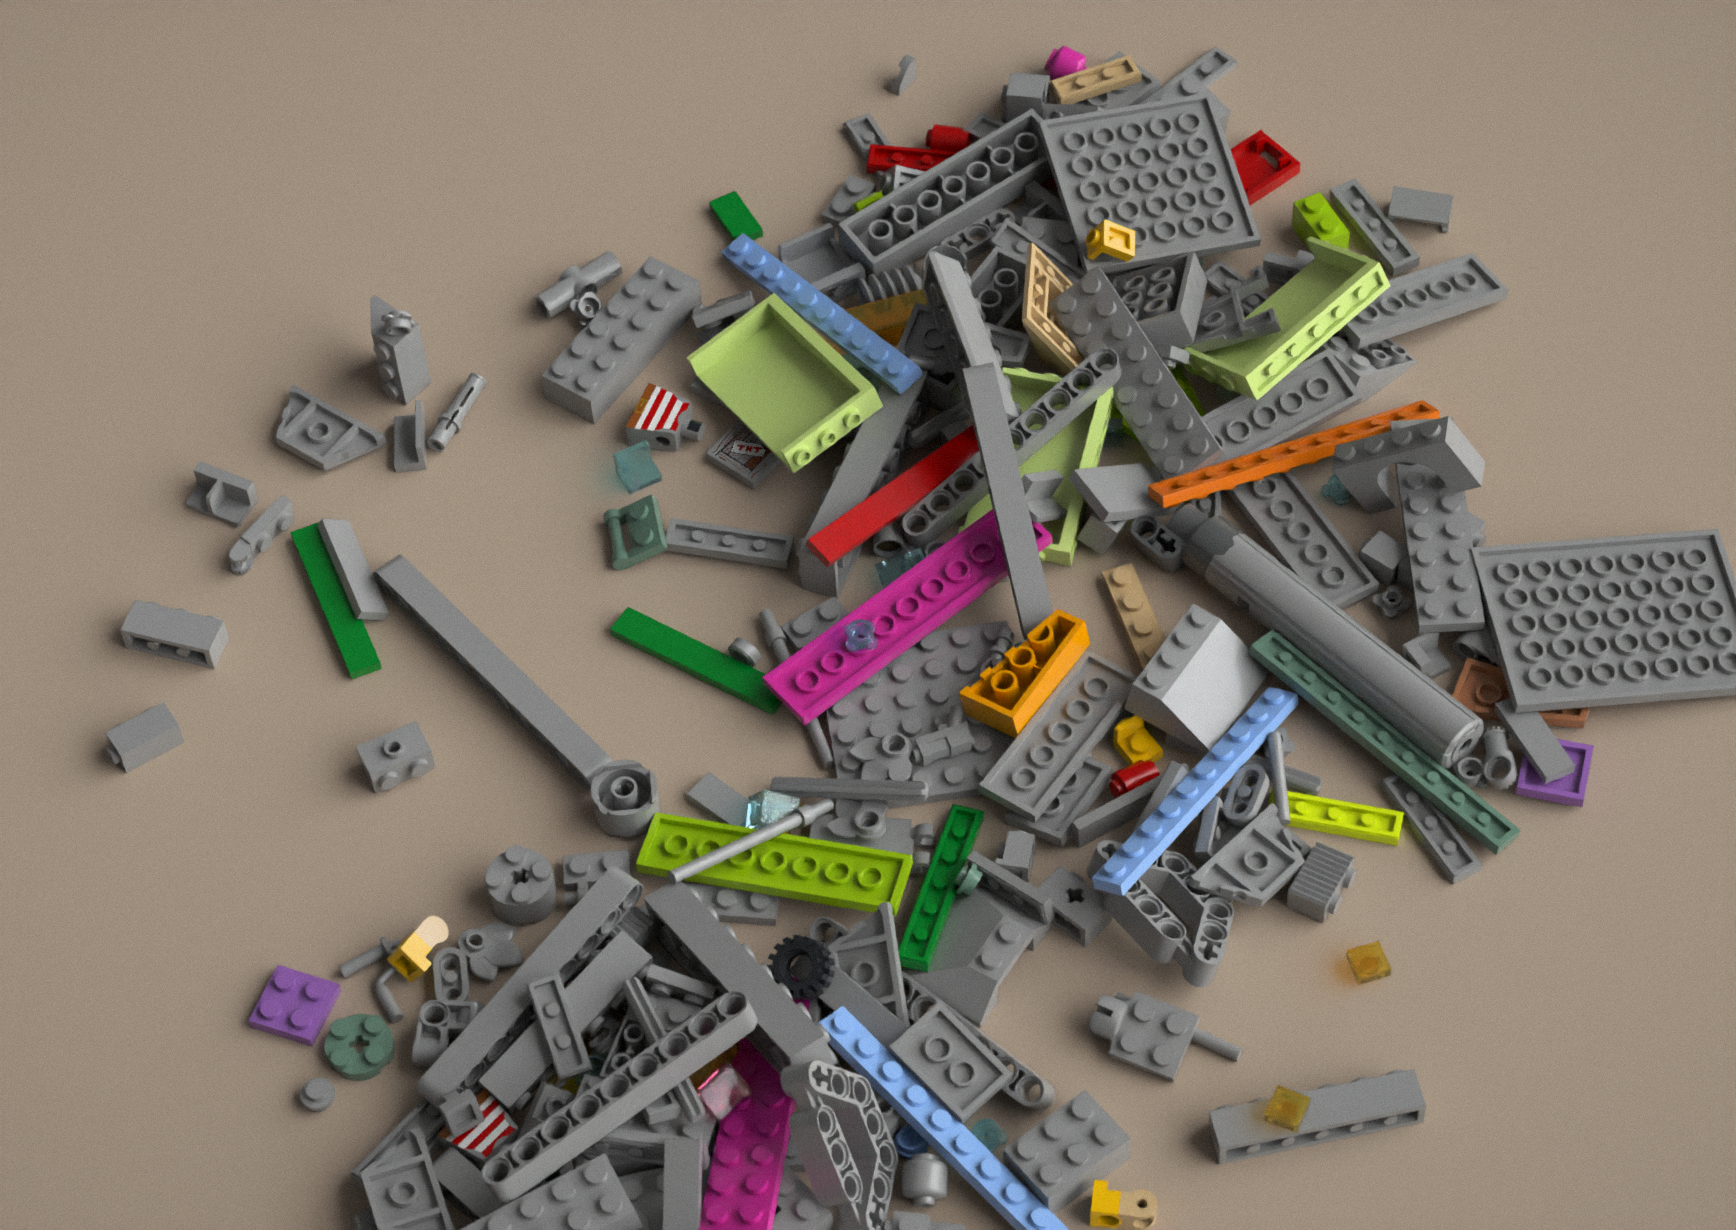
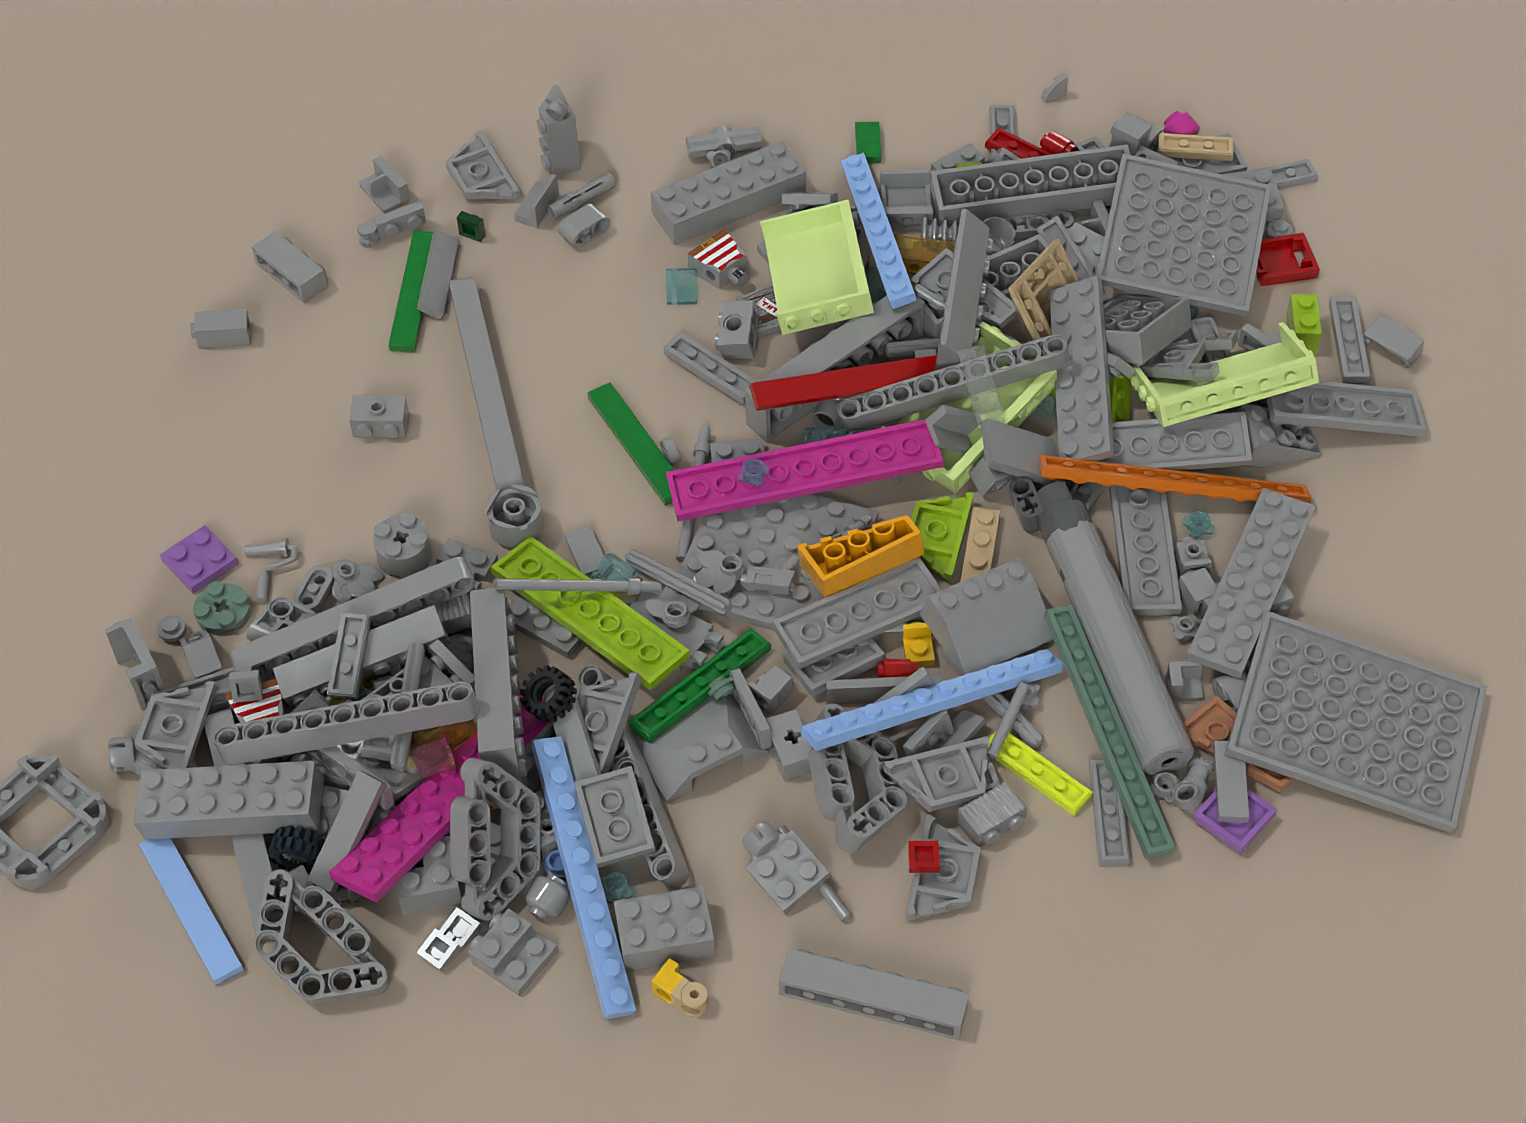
camera: 25 degrees right, 0 degrees up
(295, 1127) = (129, 645): none -> light grey panel
(355, 499) = (471, 226): none -> dark green plate
(372, 1104) = (200, 653): none -> light grey slope
(411, 953) = (312, 551): yellow leg -> none
(483, 444) = (584, 225): none -> light grey beam
(644, 529) = (655, 335): sand green plate -> none
(743, 502) = (738, 329): none -> light grey brick
(1007, 496) = (919, 412): light grey beam -> none
(1048, 437) = (980, 384): none -> clear tile
(1086, 598) = (942, 531): none -> lime wing
(1111, 240) = (1125, 263): yellow bracket -> none
(1235, 134) = (1278, 228): none -> light grey plate
(1242, 800) = (971, 721): light grey plate -> none
(1284, 954) = (923, 856): none -> red plate
(1287, 1109) = (846, 975): clear yellow plate -> none
(1307, 962) = (956, 879): none -> light grey wing
(1356, 525) = (1191, 554): none -> light grey brick
(1368, 962) = (990, 894): clear yellow plate -> none
(1434, 443) = (1273, 514): light grey arch -> none

